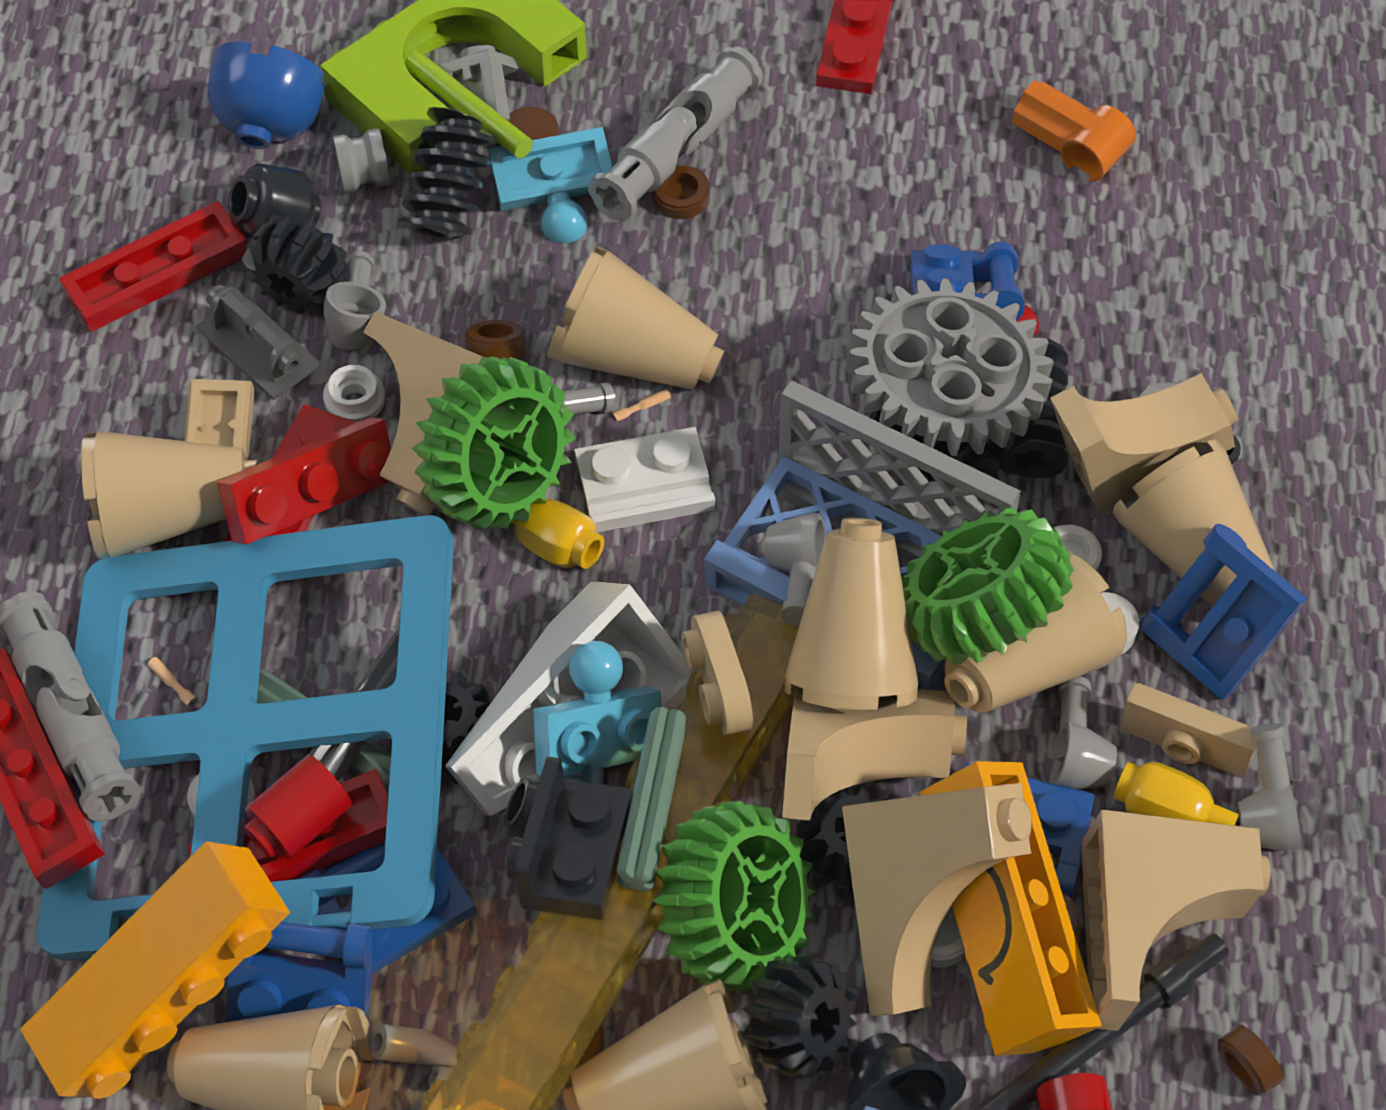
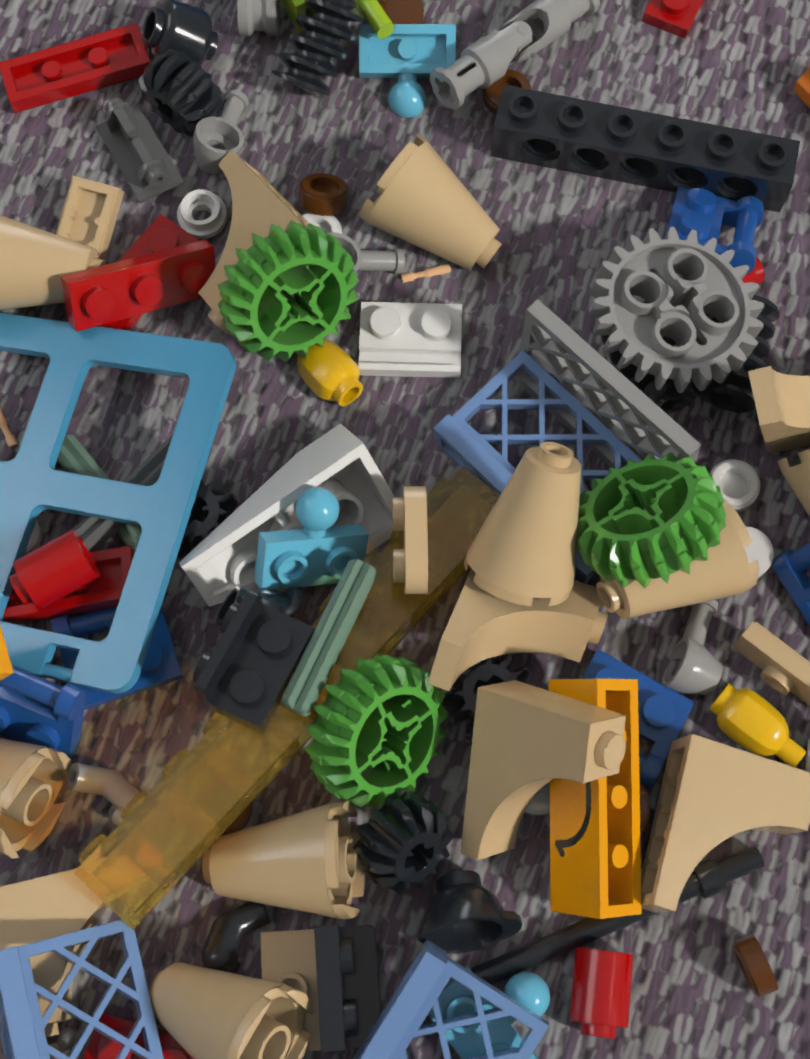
camera: 15 degrees right, 15 degrees up
(796, 549) = (509, 438): light grey bar -> none
(855, 214) = (642, 147): none -> black brick

